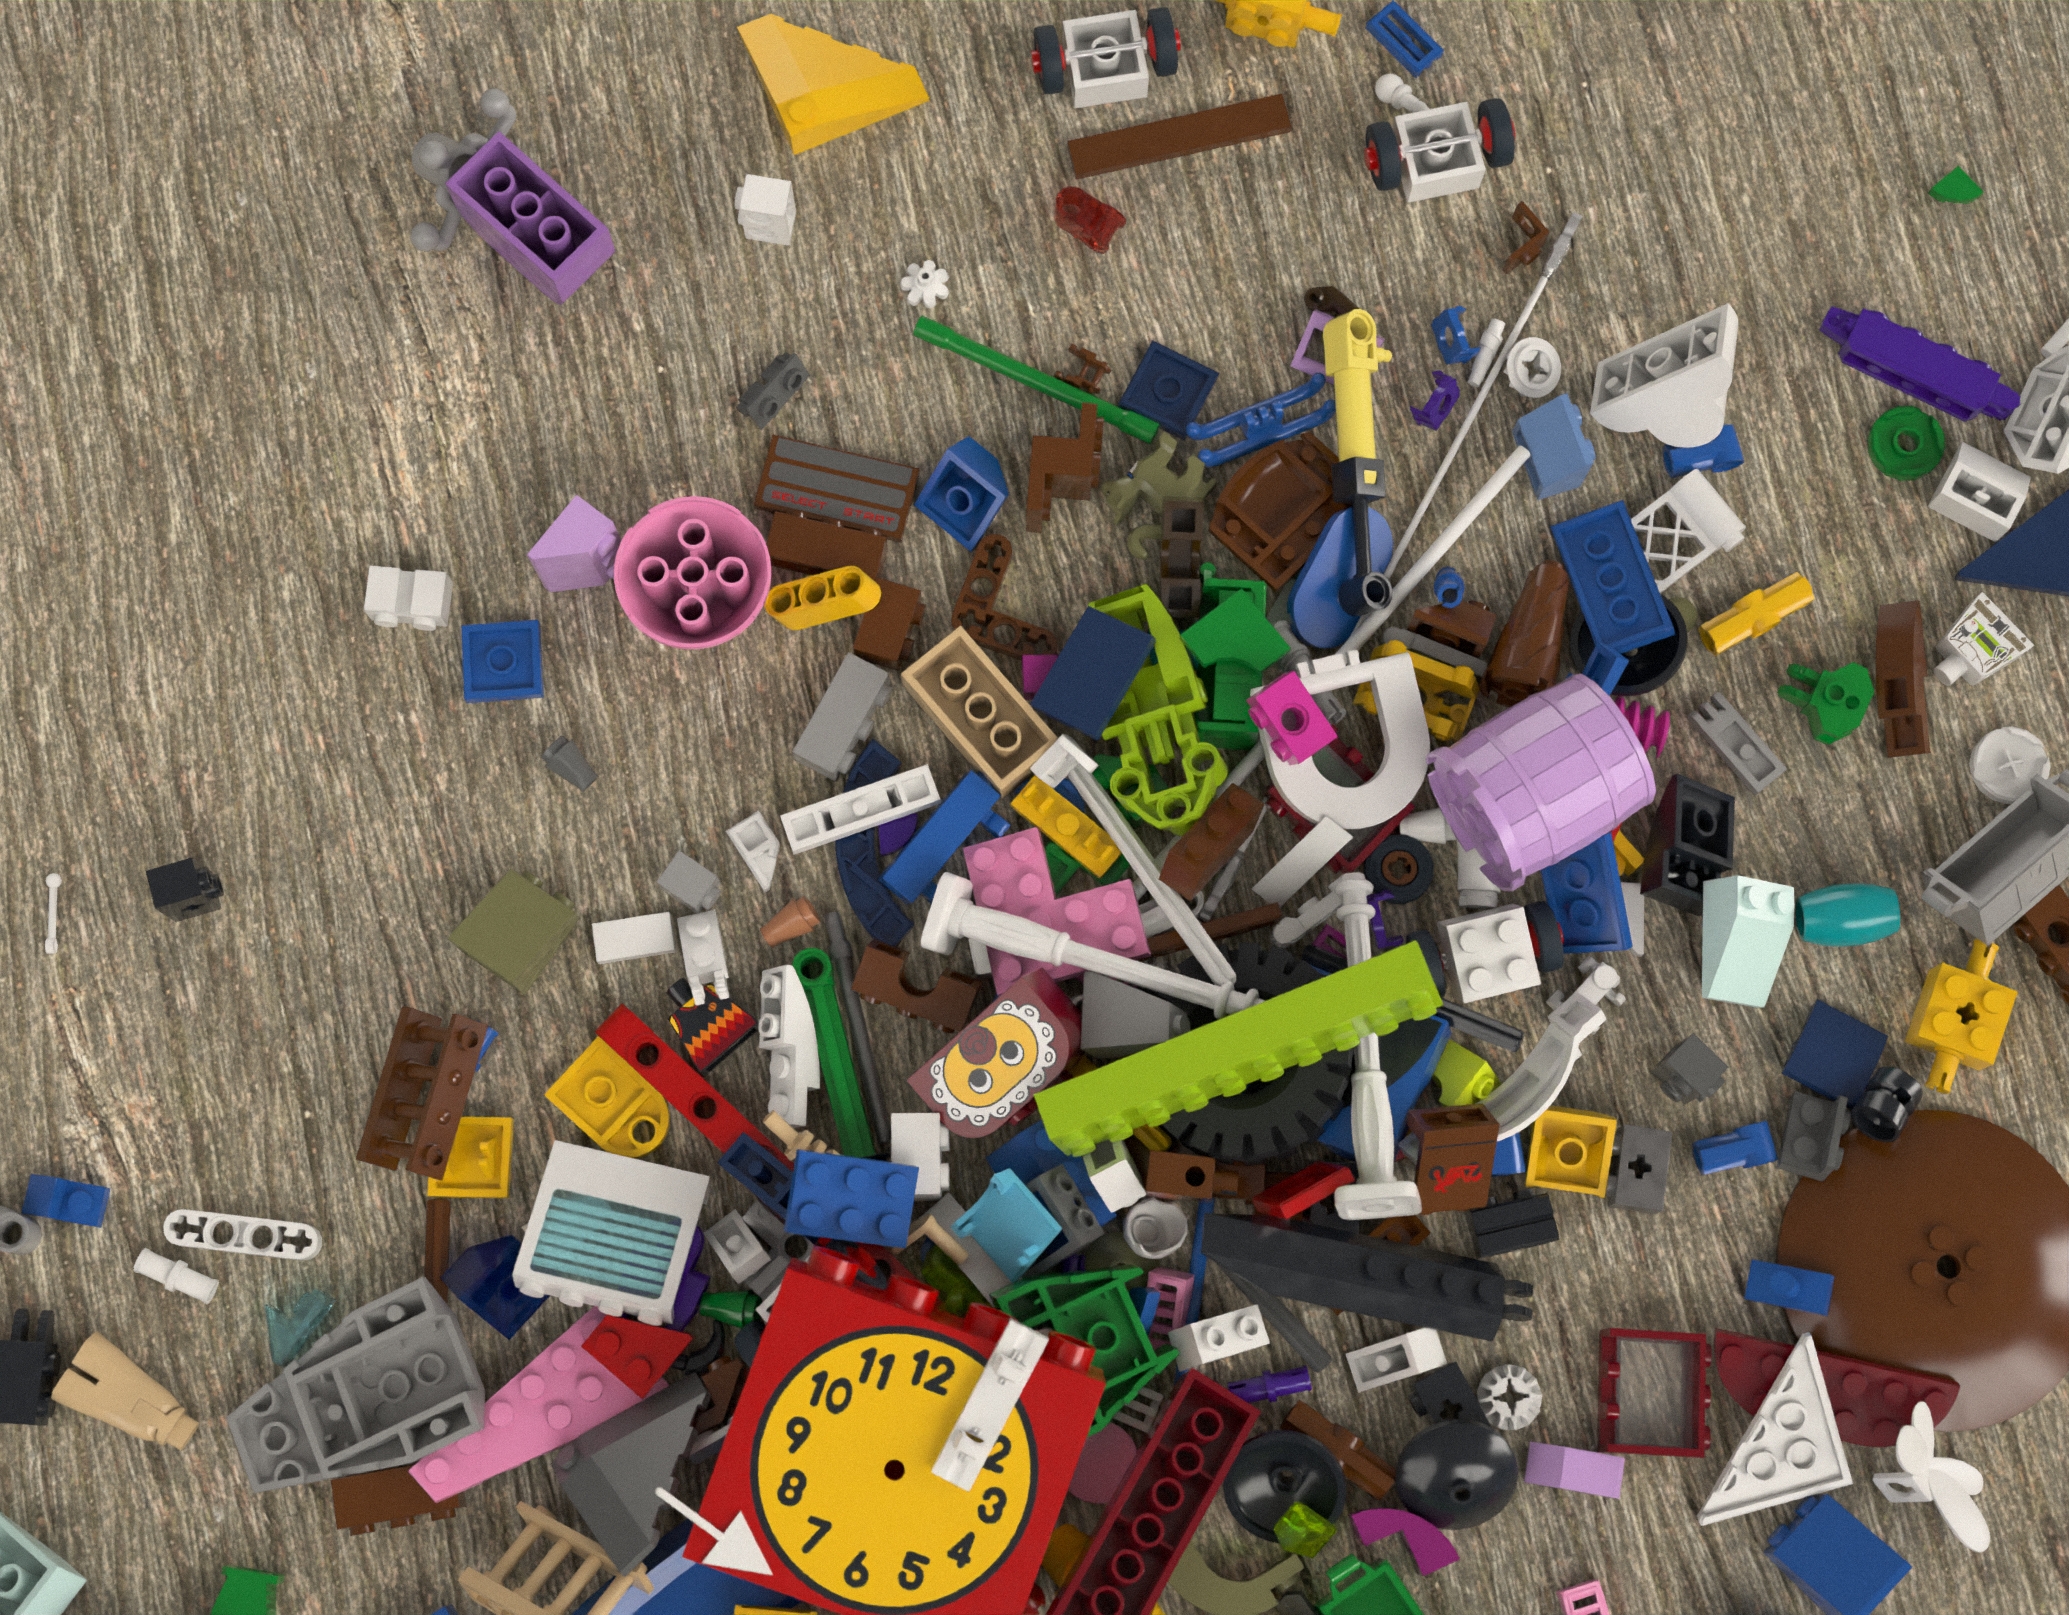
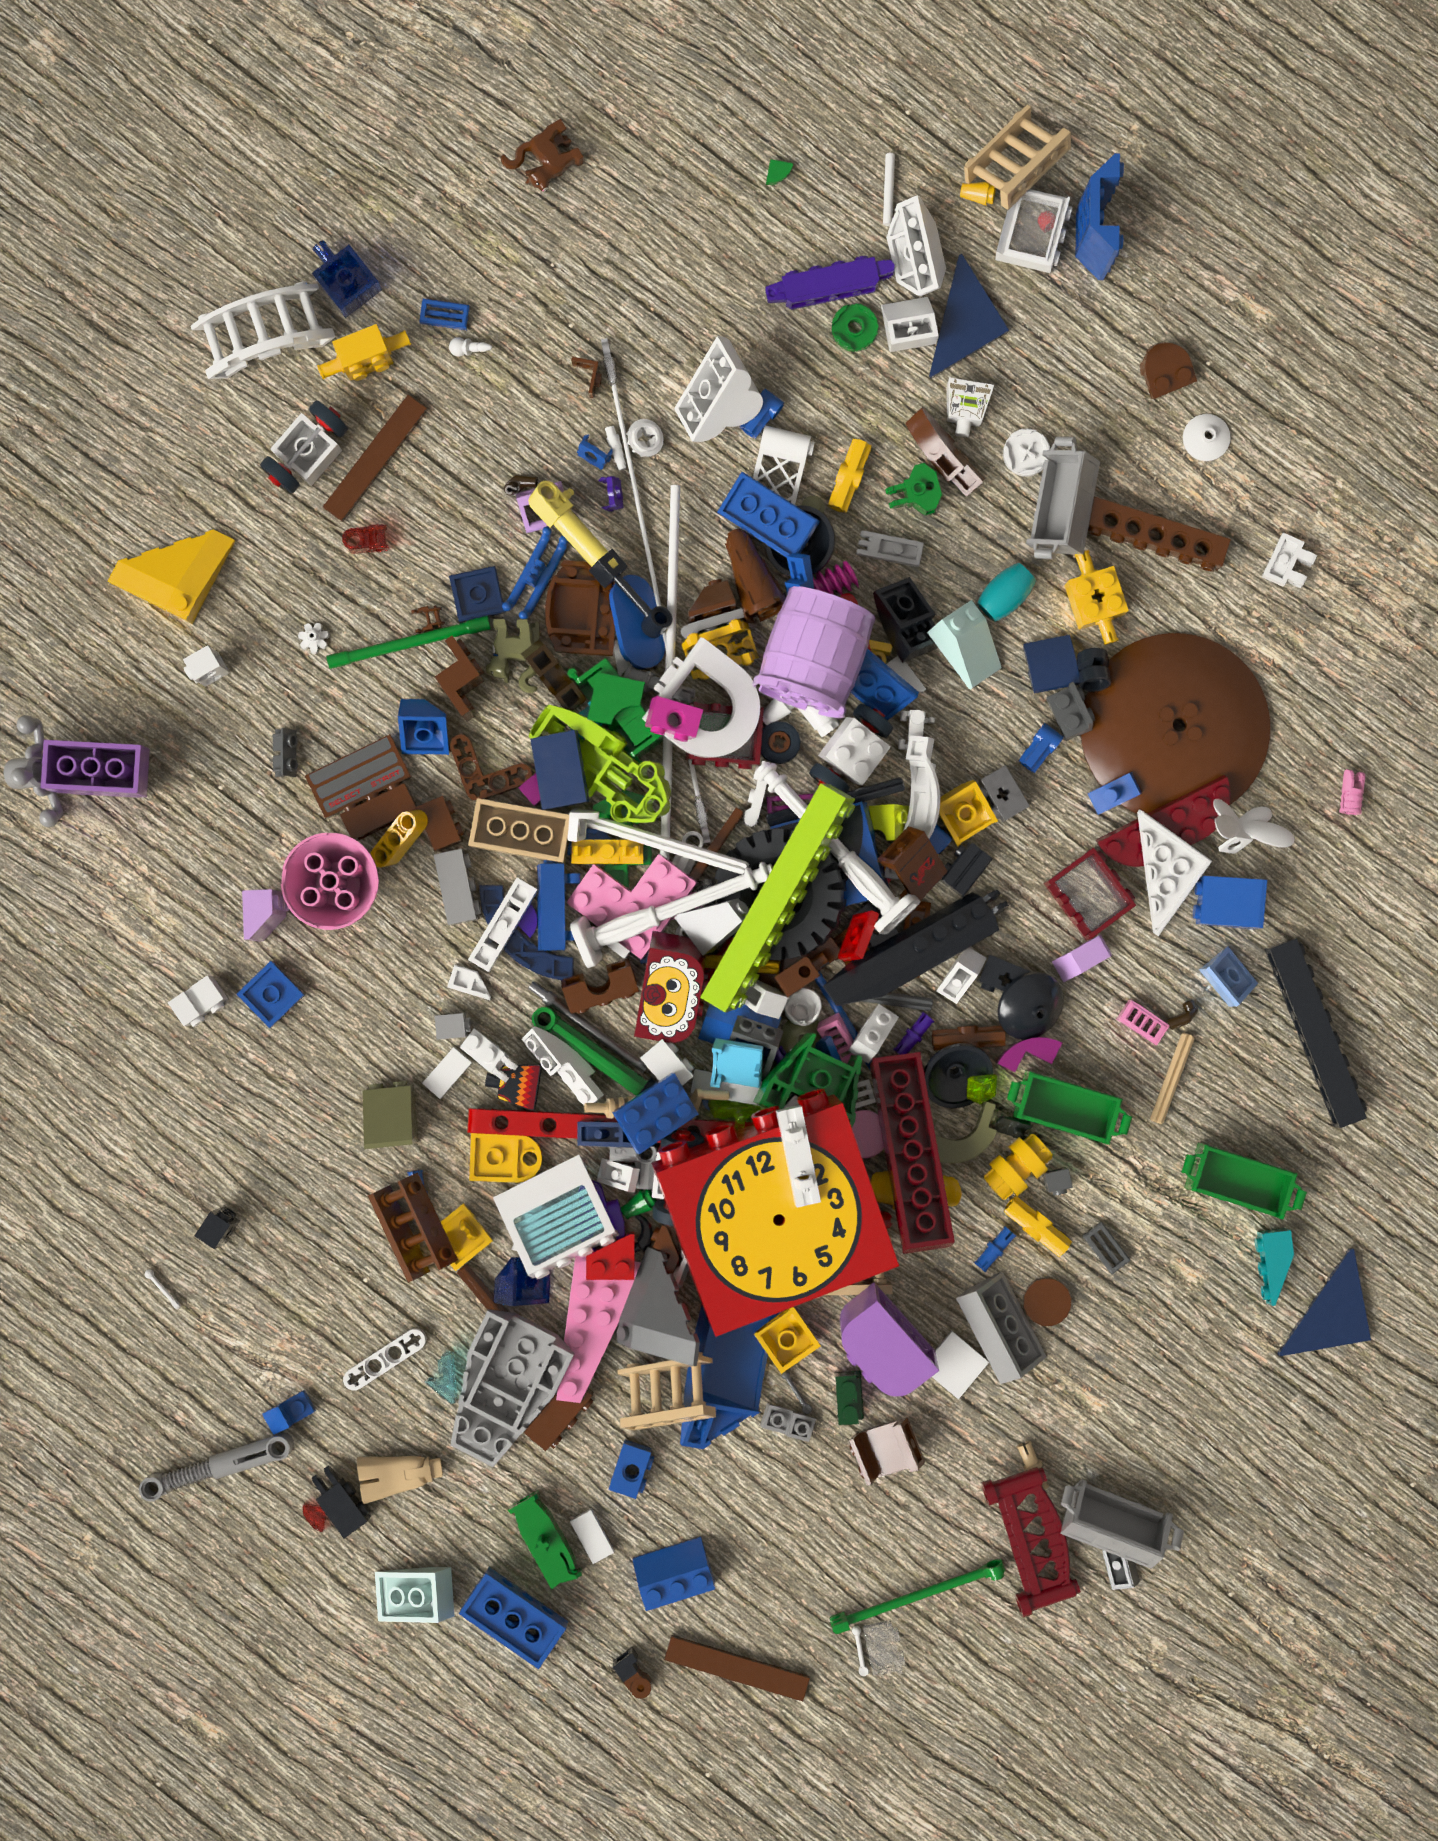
camera: 35 degrees left, 10 degrees up
(176, 1276) = (371, 1402): white pin -> none
(569, 763) = (345, 1016): dark grey cone -> none
(735, 1546) = (735, 1313): white piece -> none
(791, 922) = (515, 1003): nougat cone -> none
(1211, 841) = (682, 806): reddish brown brick -> none
(1302, 862) = (732, 778): white sticker -> none
(1377, 923) = (799, 784): dark purple piece -> none
(1439, 149) = (510, 362): brick -> none
(1449, 587) = (693, 585): blue pin -> none
(1522, 1382) = (1015, 948): white gear -> none
(1556, 446) = (688, 472): medium blue slope -> none
(1690, 1071) = (991, 729): dark grey brick -> none

